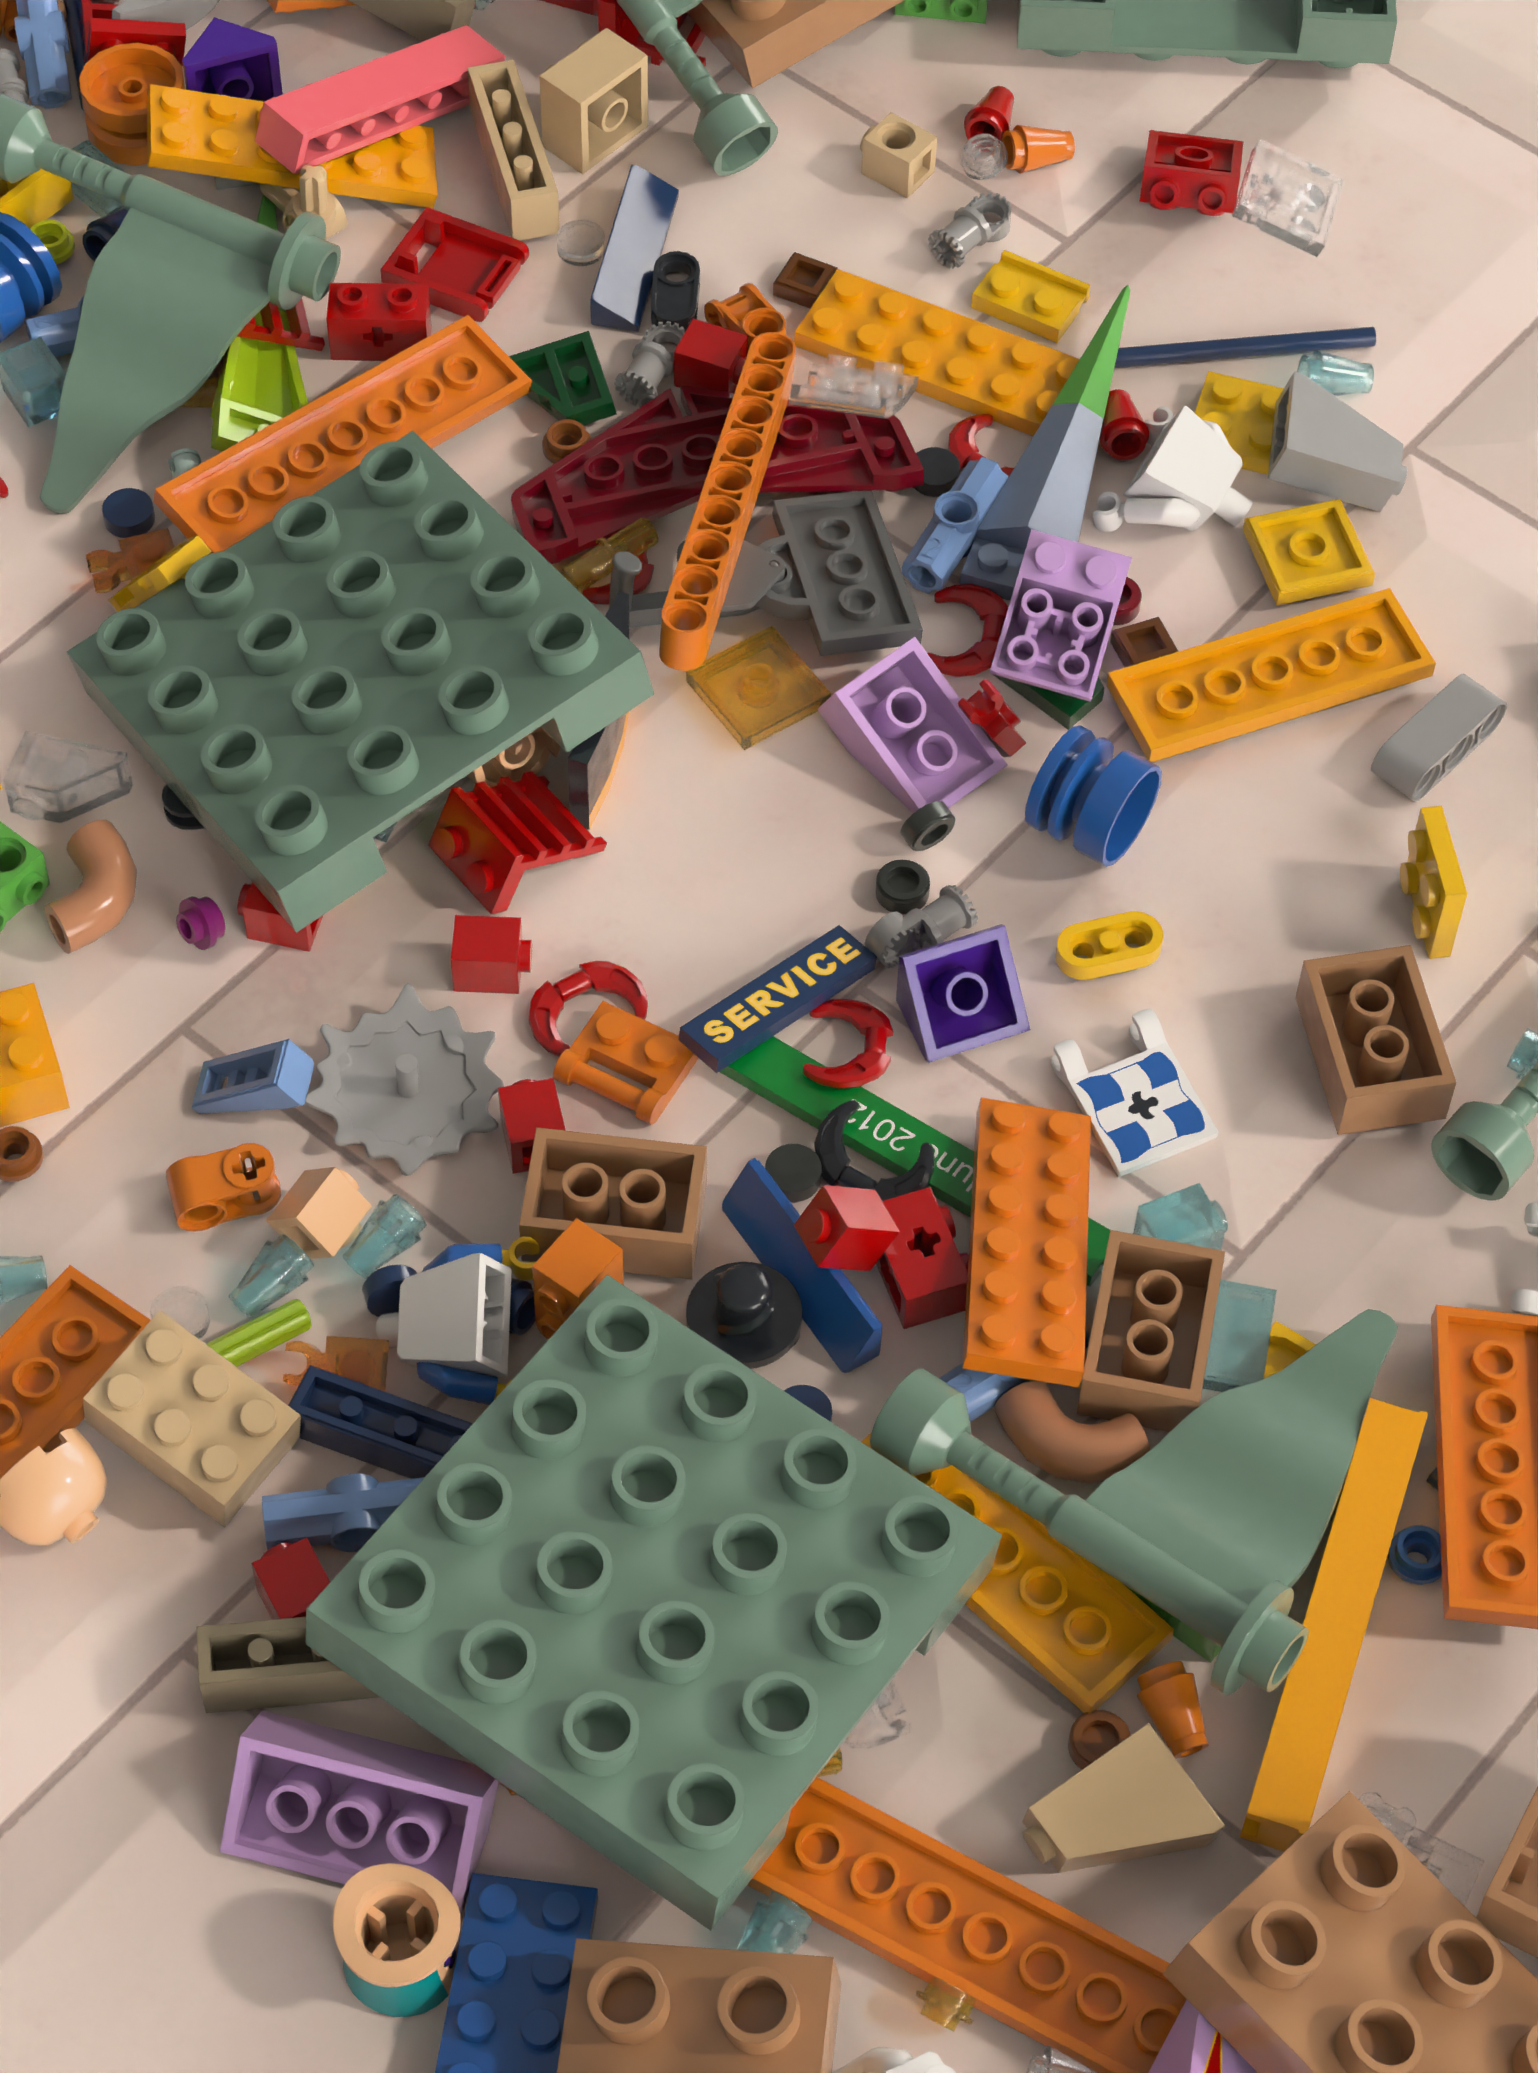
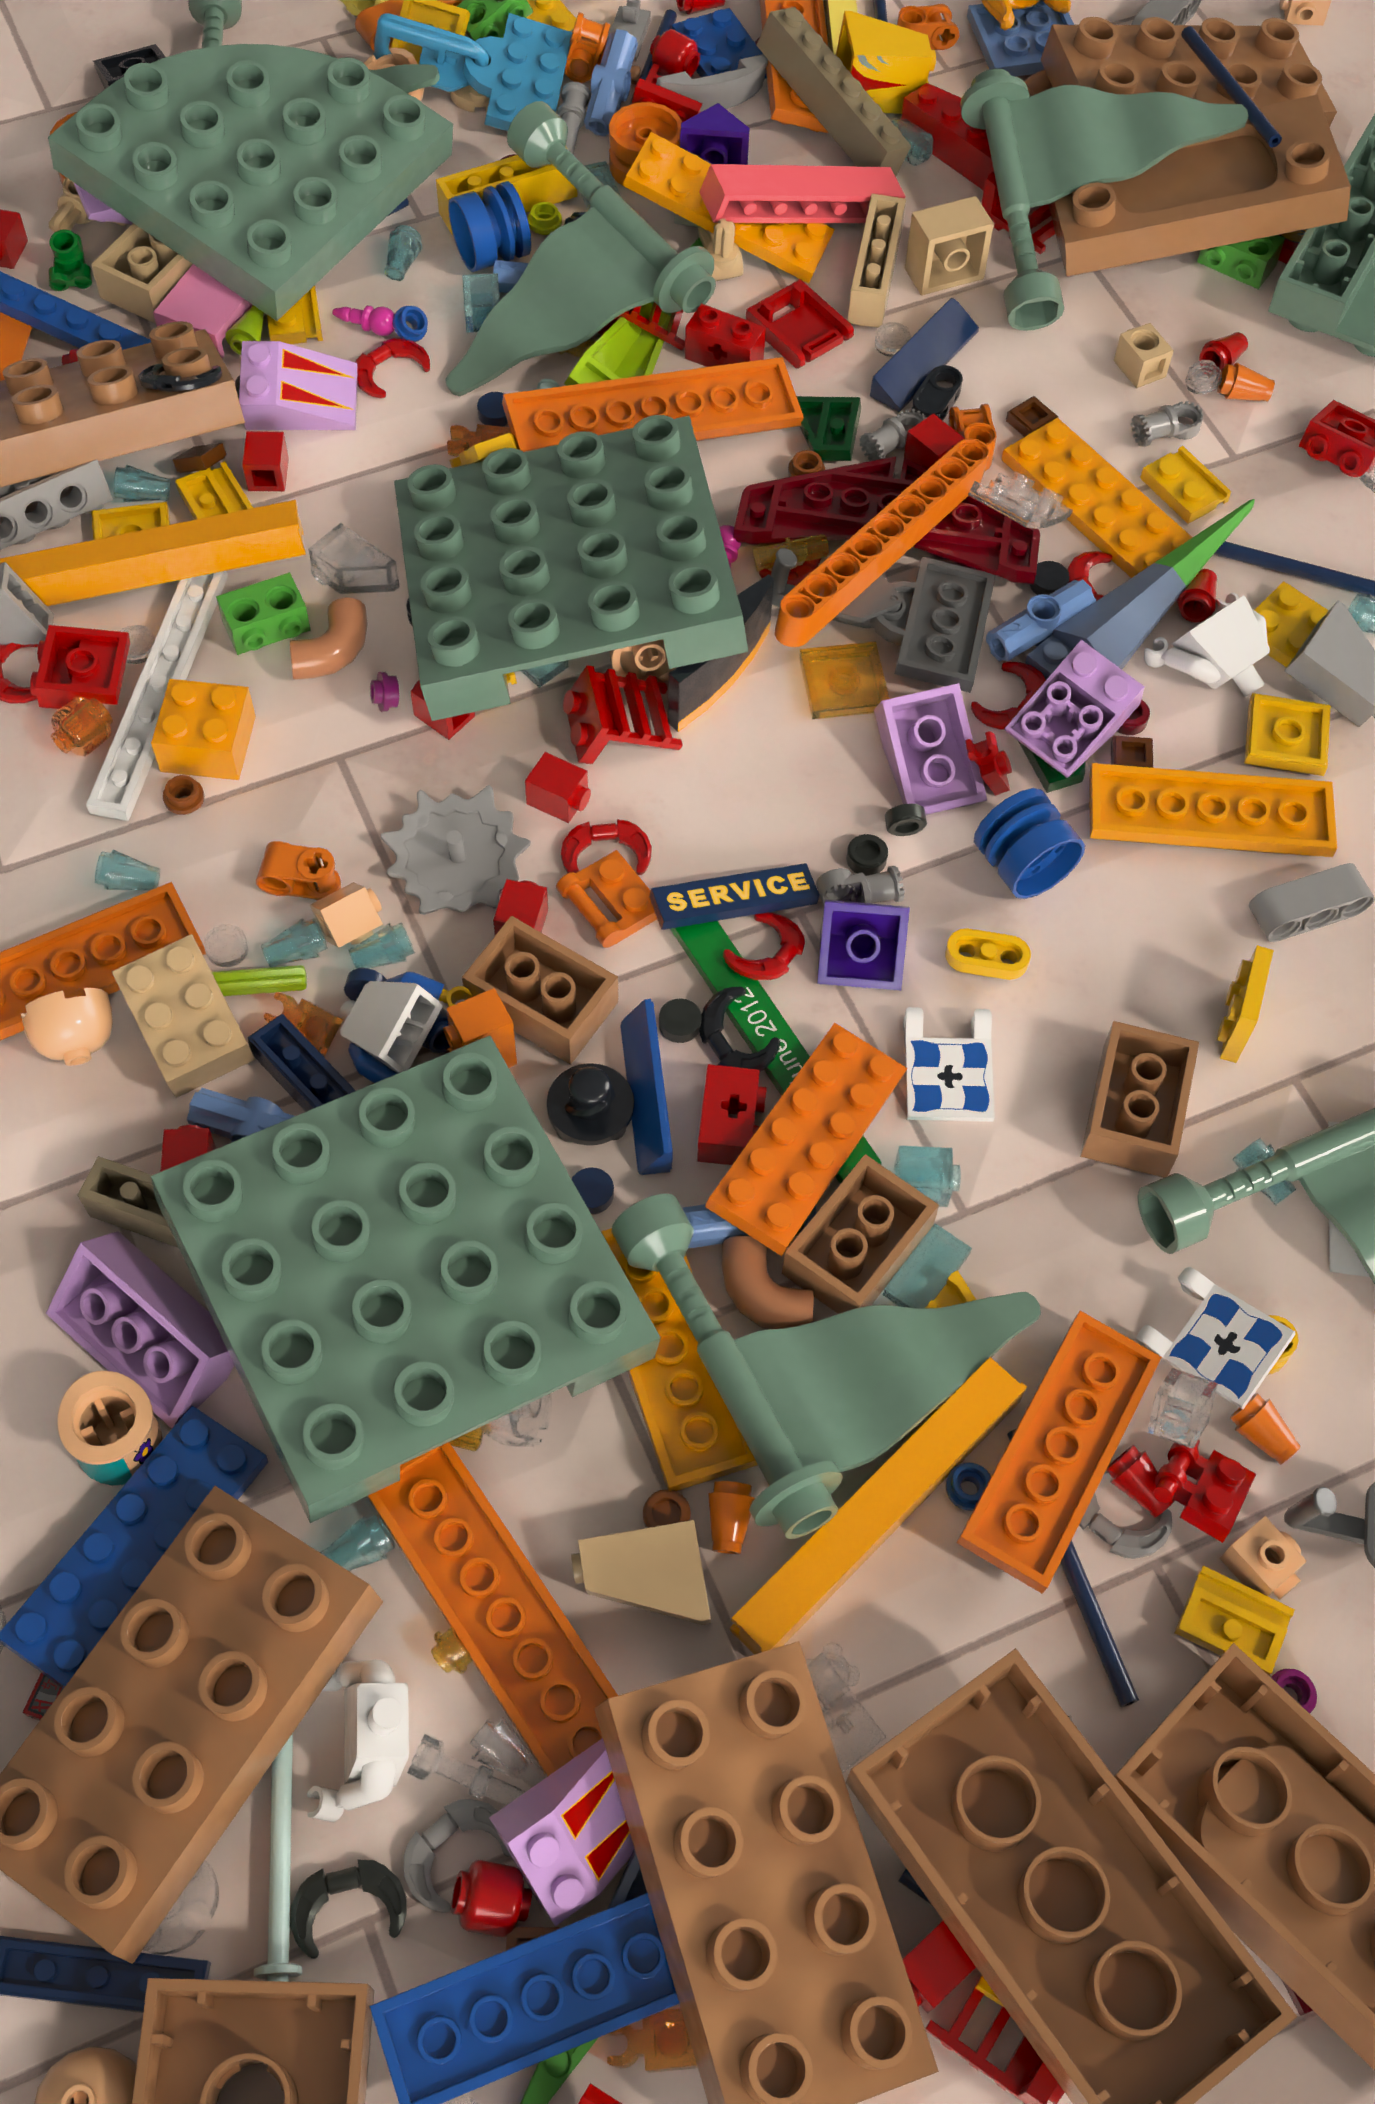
camera: 25 degrees right, 5 degrees up
(257, 1080) = (359, 809): medium blue slope -> none
(846, 1228) = (681, 1073): red brick -> none

